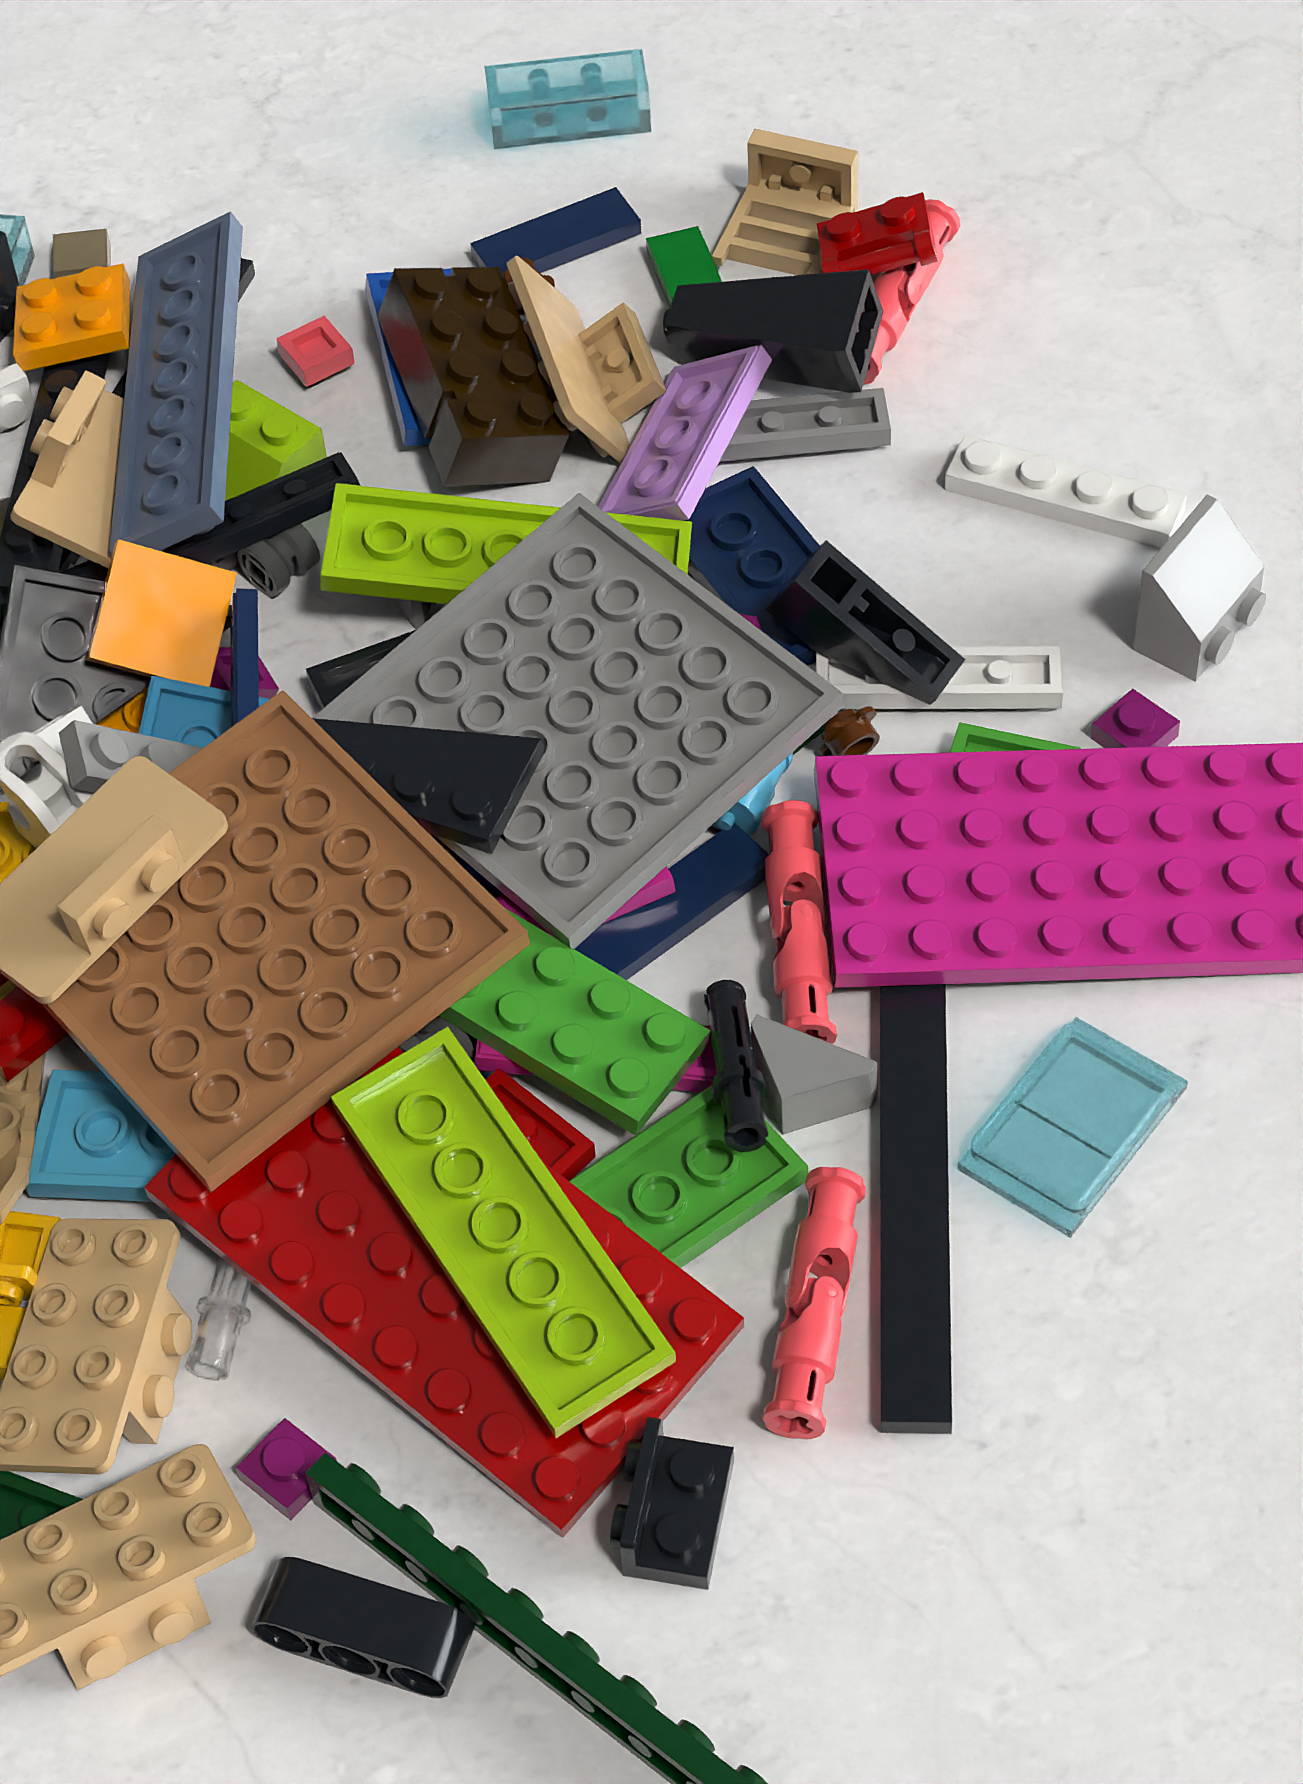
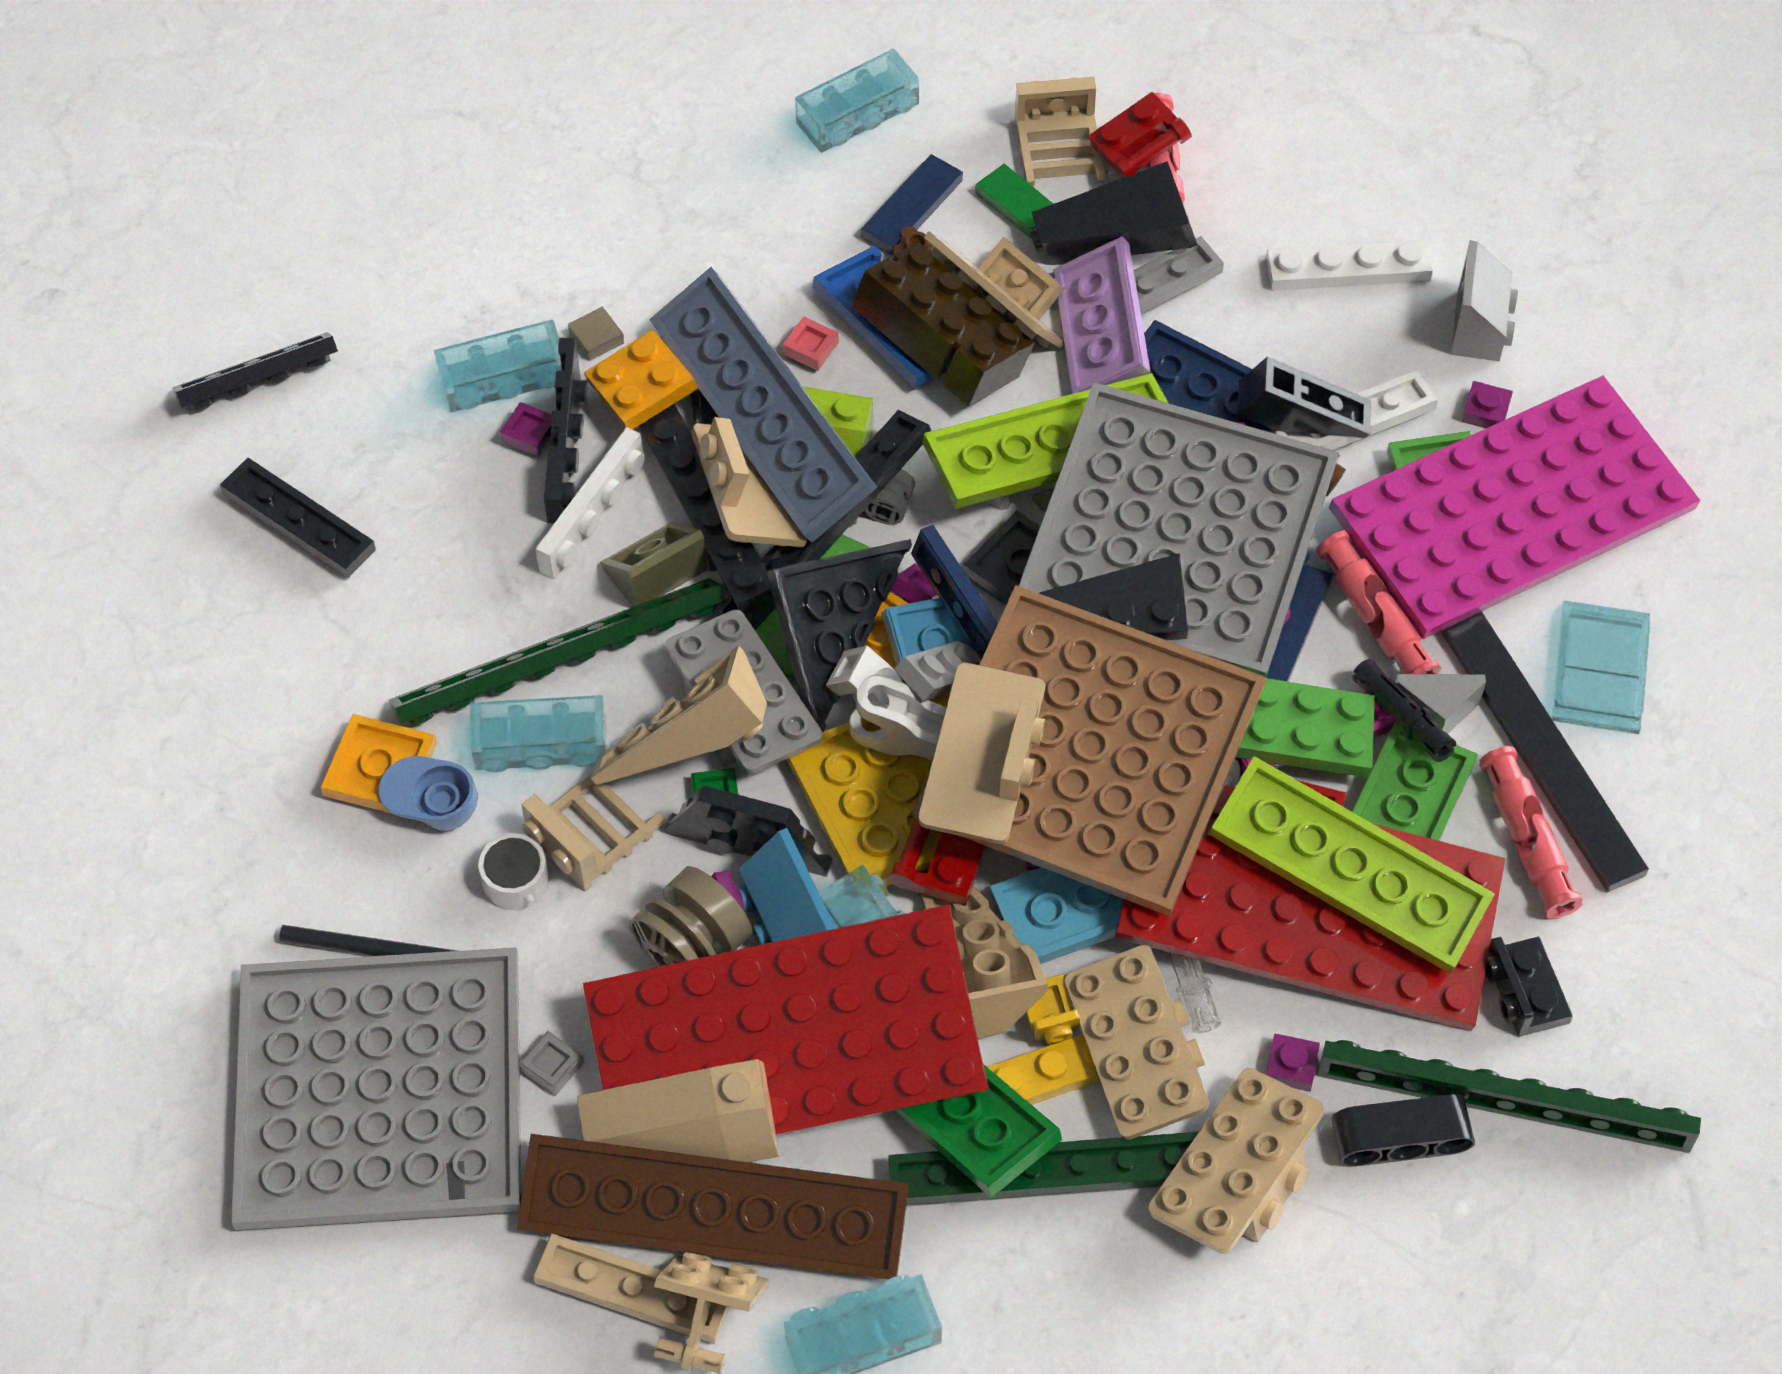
camera: 30 degrees left, 5 degrees up
(161, 615) = (872, 565): light orange tile -> none

